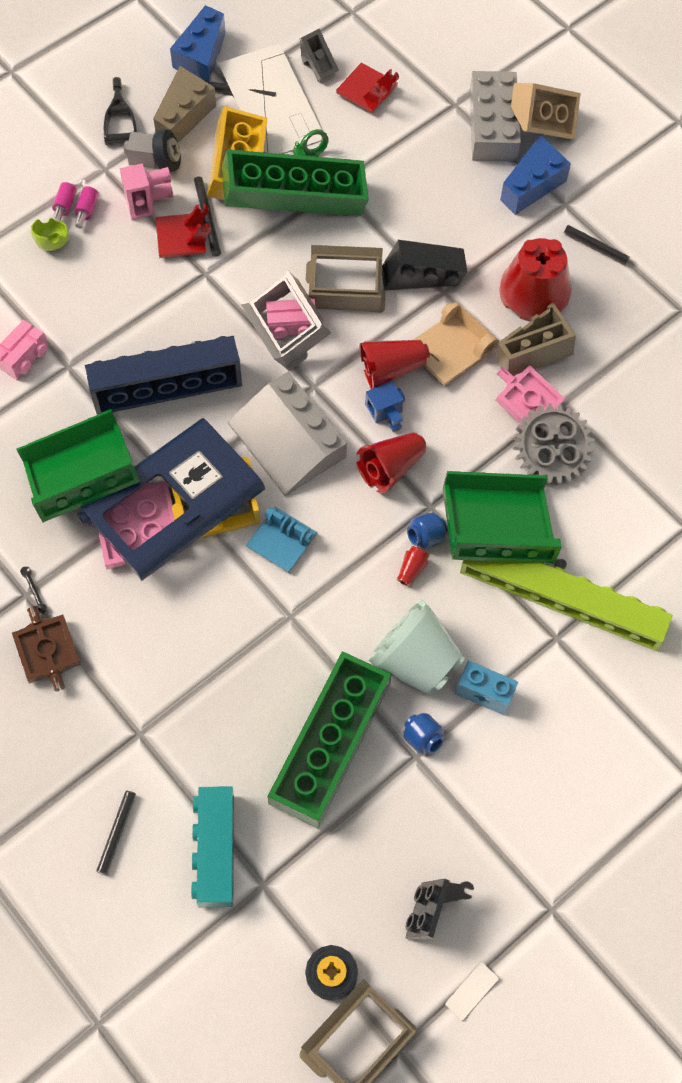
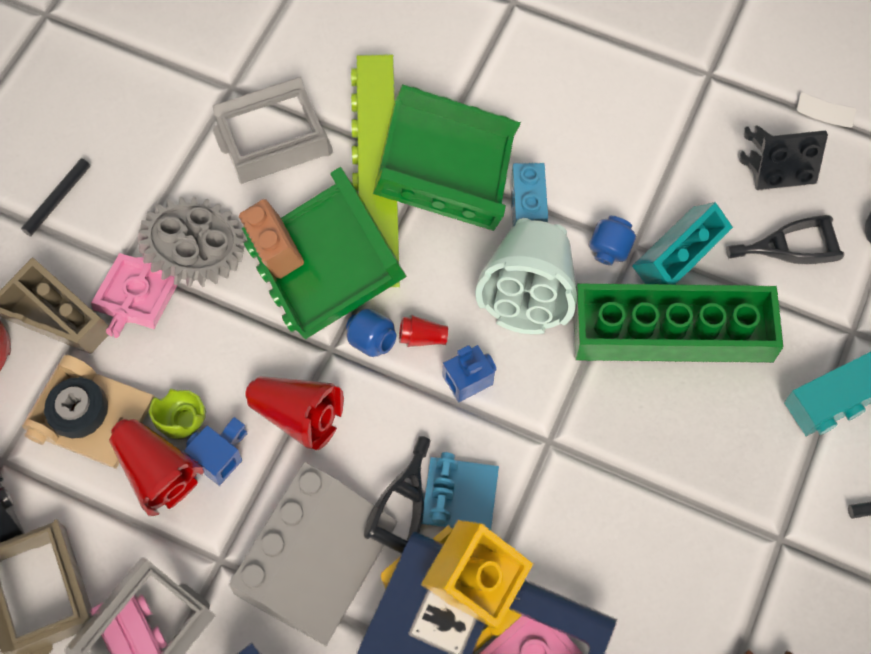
camera: 115 degrees left, 0 degrees up
(210, 496) = (477, 573): none -> yellow slope
(301, 505) = (412, 492): none -> black piece
(361, 868) = (781, 248): none -> black piece
(364, 580) = (469, 372): none -> blue brick
(391, 779) = (683, 245): none -> teal brick
(423, 390) = (177, 413): none -> lime hair
(447, 335) = (88, 413): none -> black wheel
(526, 486) = (271, 239): none -> nougat brick
(547, 640) = (446, 158): none -> green panel
(617, 565) = (277, 156): none -> light grey piece
(633, 379) = (55, 197): none -> black bar

